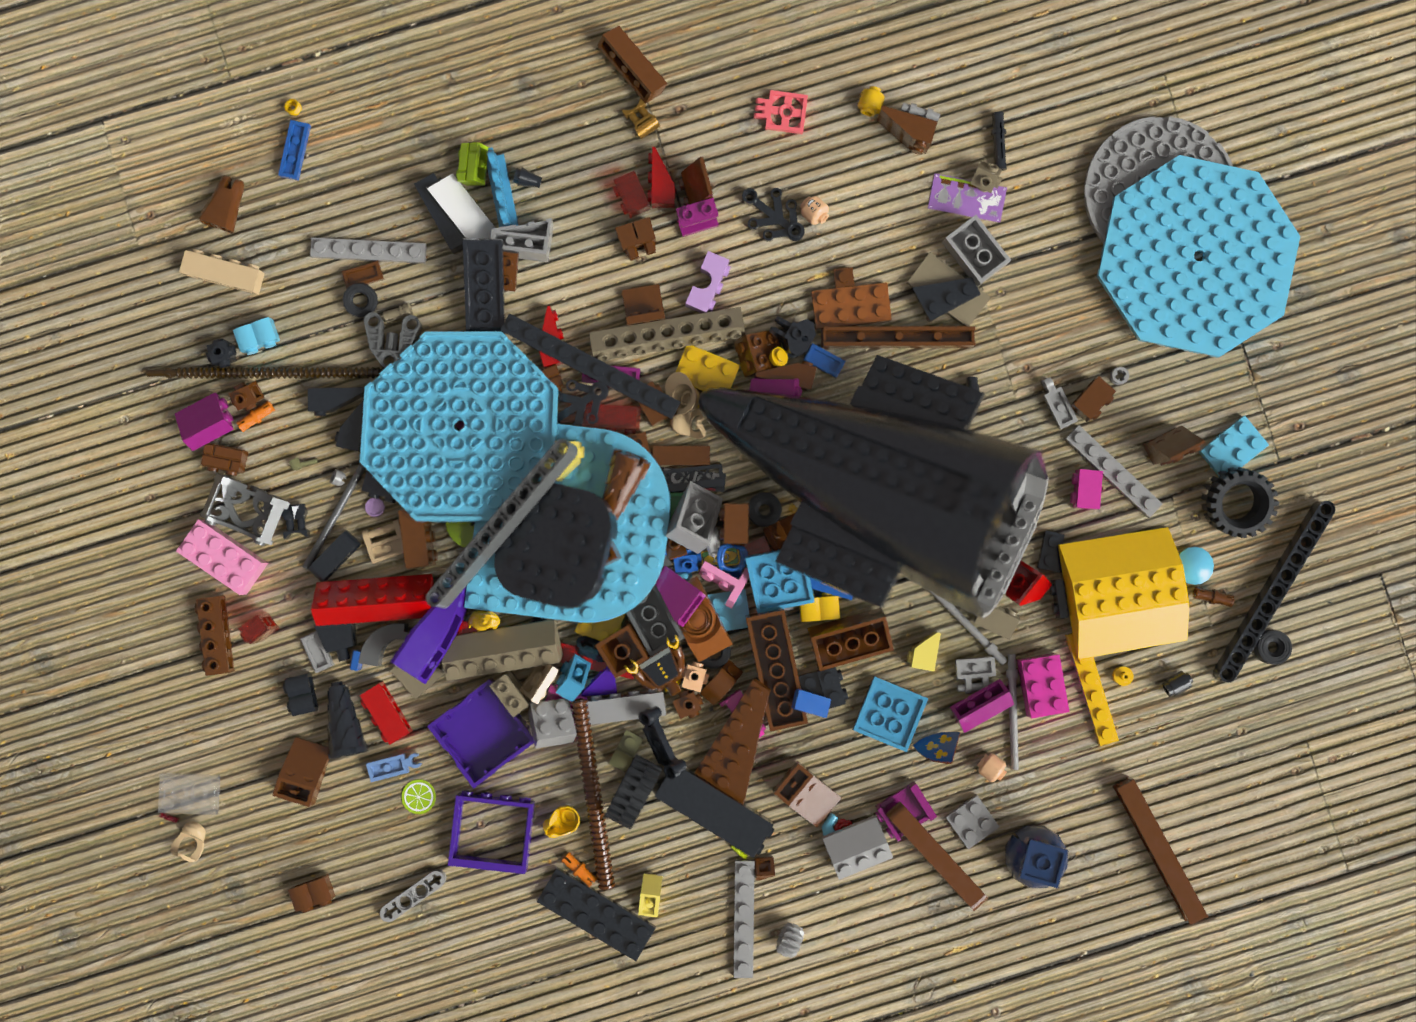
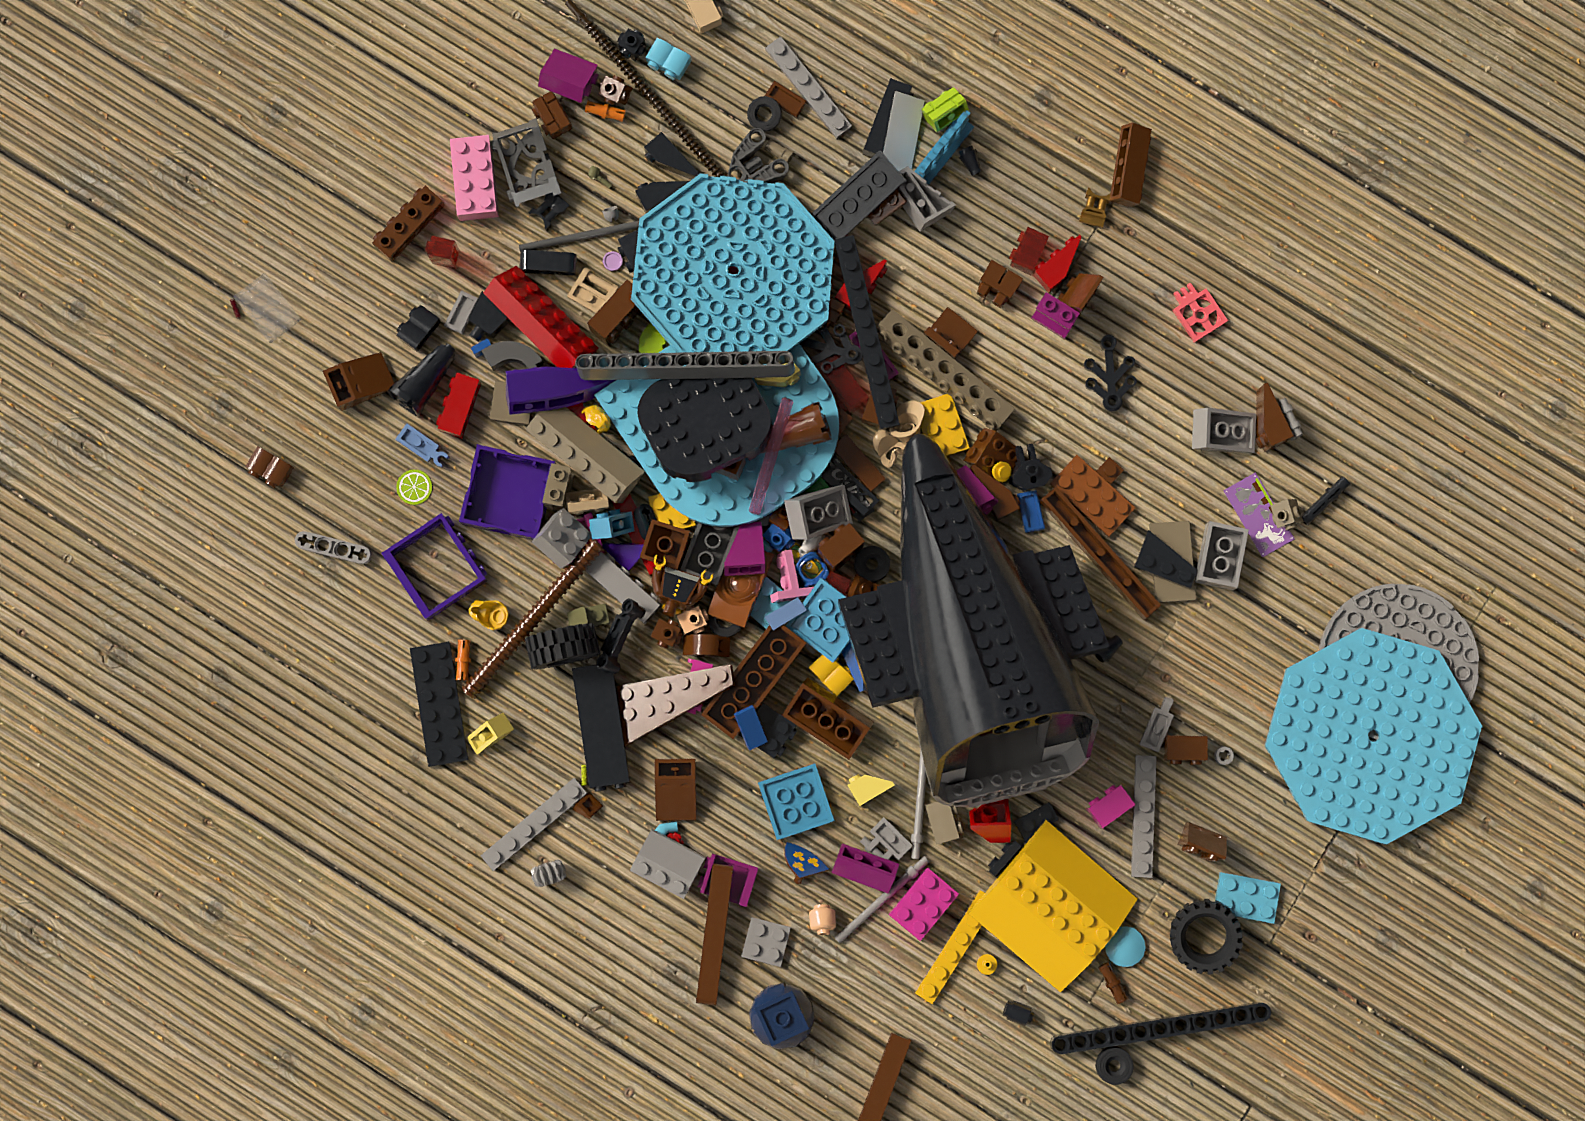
camera: 50 degrees right, 5 degrees down
(194, 830) = (241, 335): tan piece -> none
(625, 519) = (770, 456): none -> clear pink axle
(703, 299) = (1029, 365): lavender arch -> none
(749, 606) = (785, 613): none -> medium blue sticker
(814, 210) = (1142, 402): light nougat head -> none
(870, 101) = (1266, 372): yellow head -> none
(886, 169) = (1223, 430): none -> light grey slope

